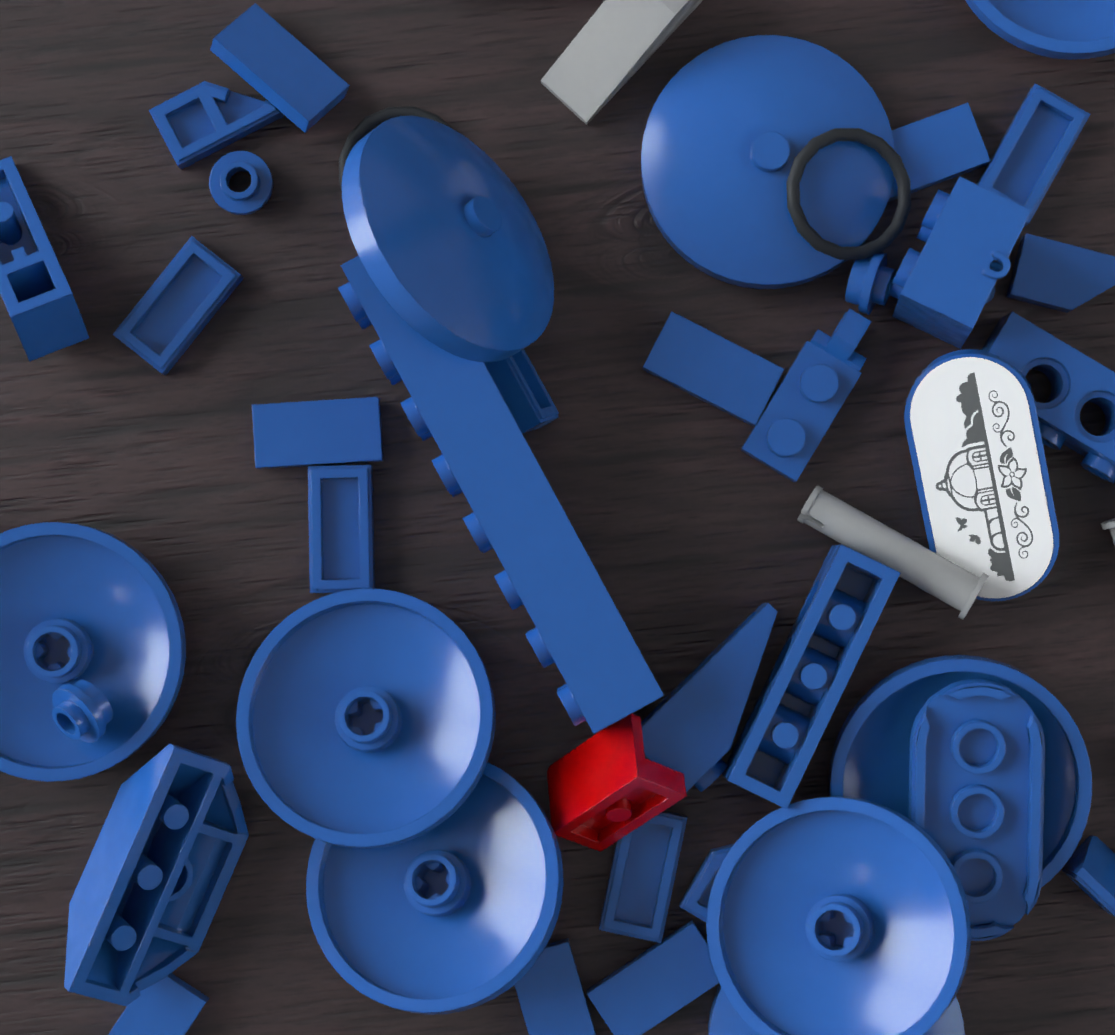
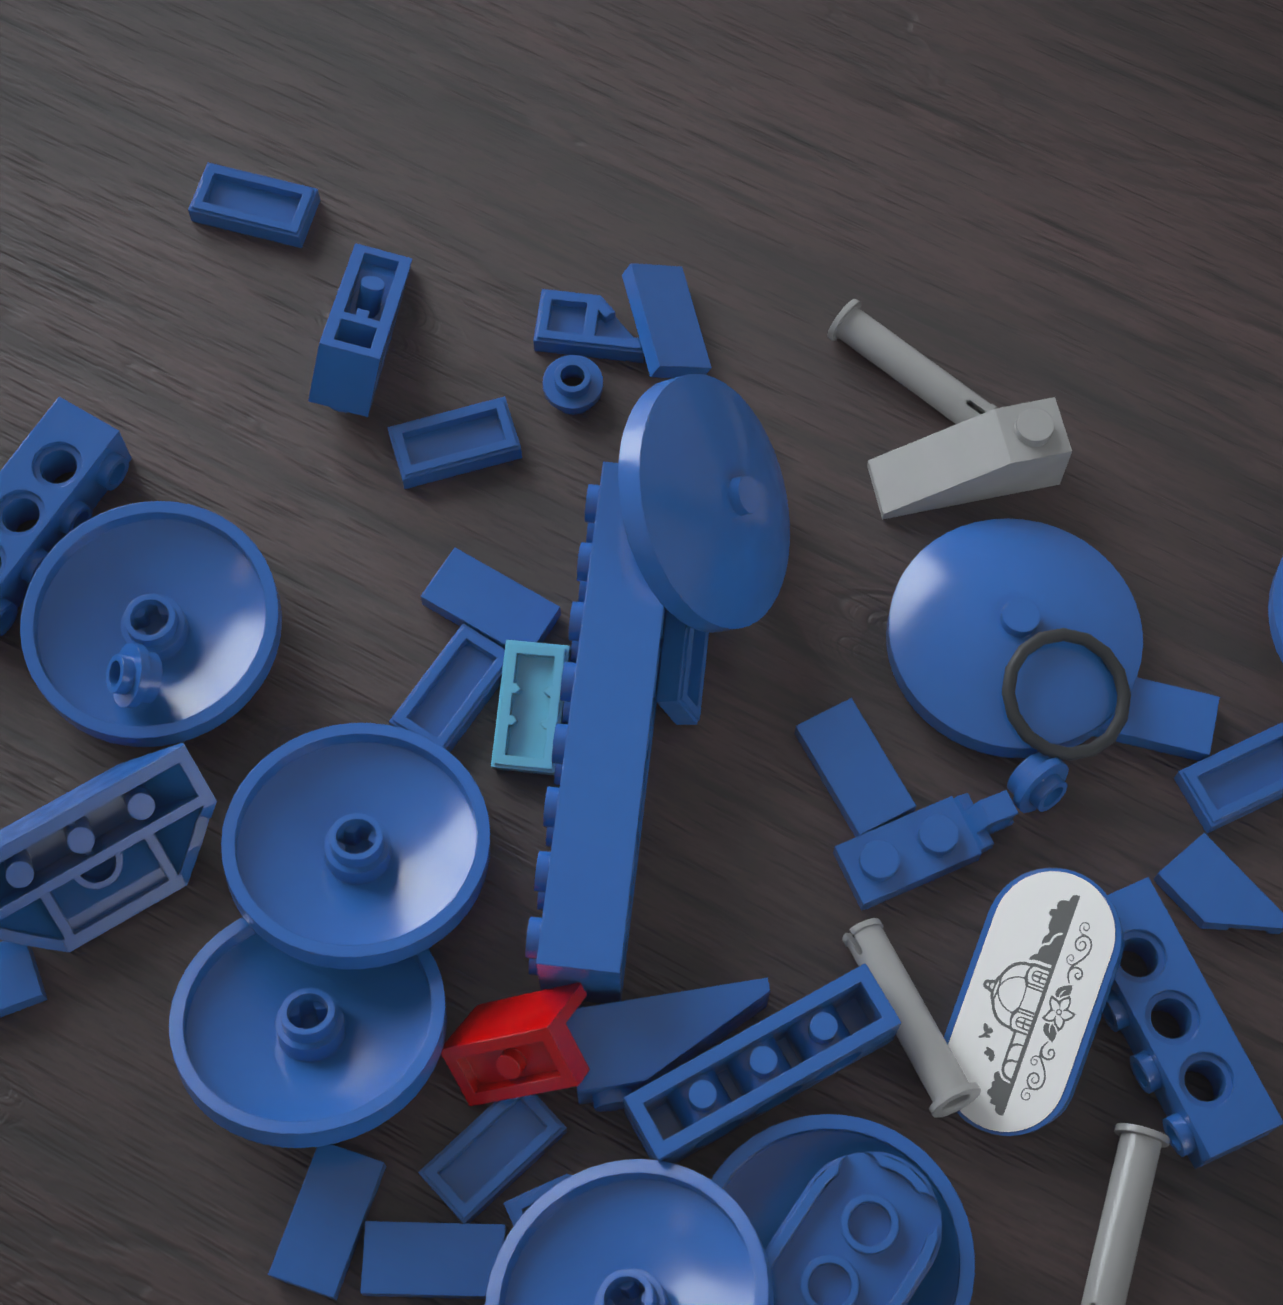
camera: 35 degrees right, 20 degrees down
(417, 501) = (529, 706): none -> medium azure plate
(963, 257) = (1126, 803): blue brick -> none

